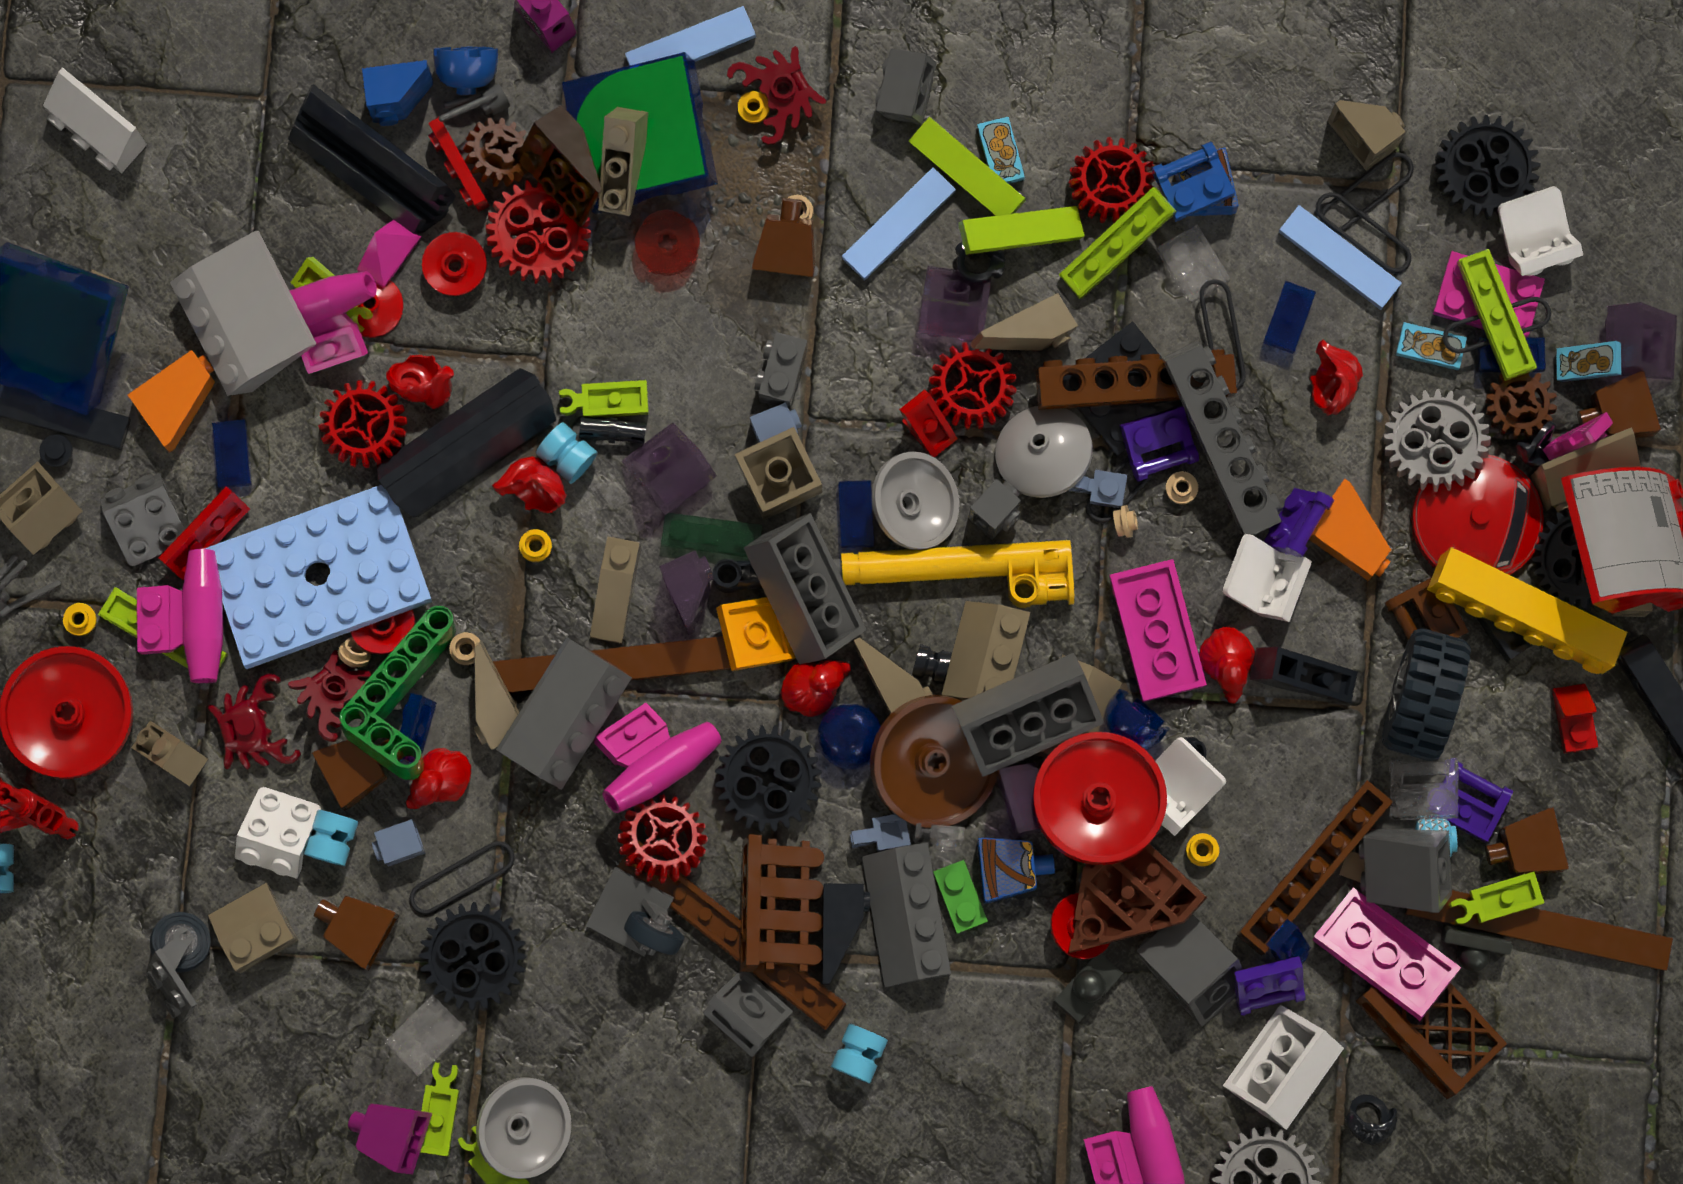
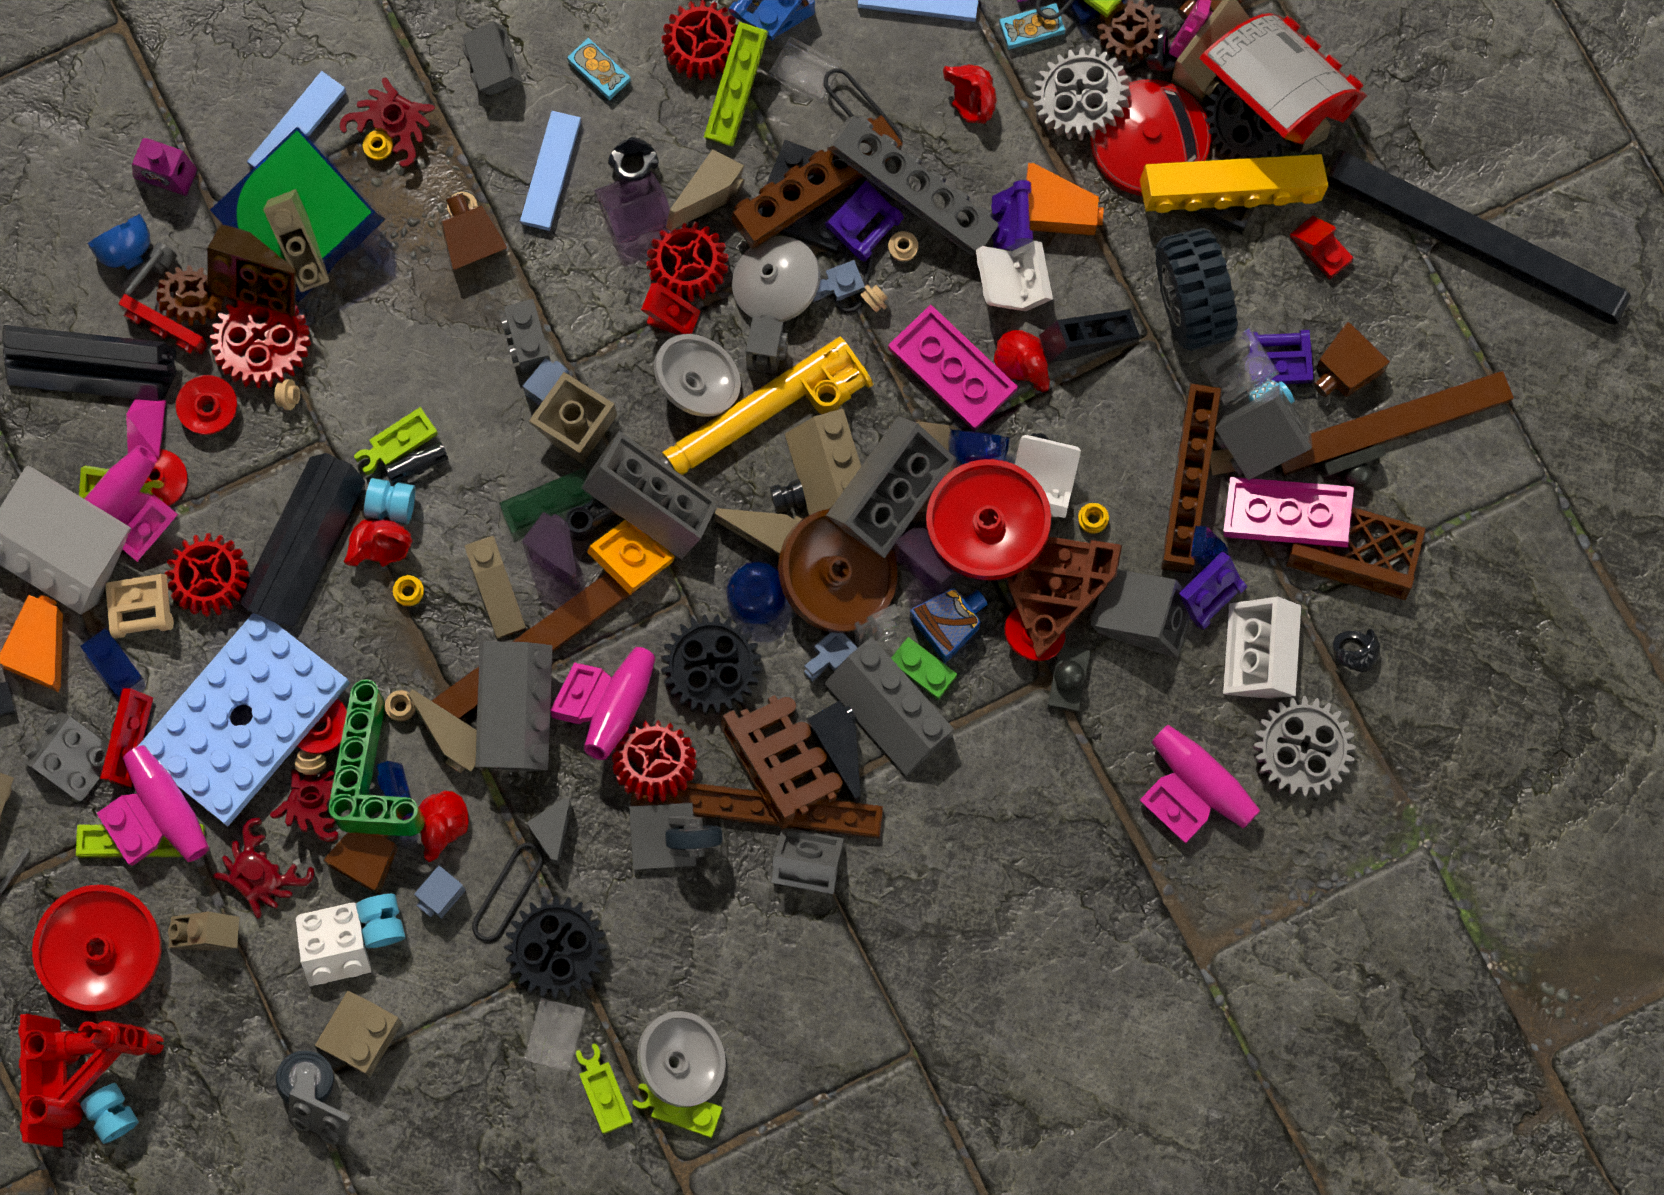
camera: 30 degrees left, 5 degrees down
(89, 621) = (71, 872): yellow plate -> none
(288, 407) = (138, 595): none -> tan plate
(356, 928) = (445, 981): reddish brown torso -> none
(391, 1135) = (574, 1129): magenta torso -> none
(395, 90) = (75, 292): blue slope -> none
(421, 380) = (236, 511): red hair -> none
(532, 296) = (287, 394): none -> tan plate
(532, 845) = (551, 828): none -> dark grey slope
(651, 234) = (372, 307): clear red plate -> none
(669, 468) = (481, 465): clear purple slope -> none
(813, 686) = (702, 571): red hair -> none
(856, 514) = (654, 416): clear blue plate -> none
(859, 1053) = (918, 838): medium azure wheel -> none
(966, 169) = (580, 97): lime tile -> none
(1021, 230) = (653, 117): lime tile -> none
(1289, 317) = (907, 66): clear blue plate -> none
(1436, 614) = (1155, 226): reddish brown plate -> none
(1501, 899) = (1351, 417): lime plate -> none

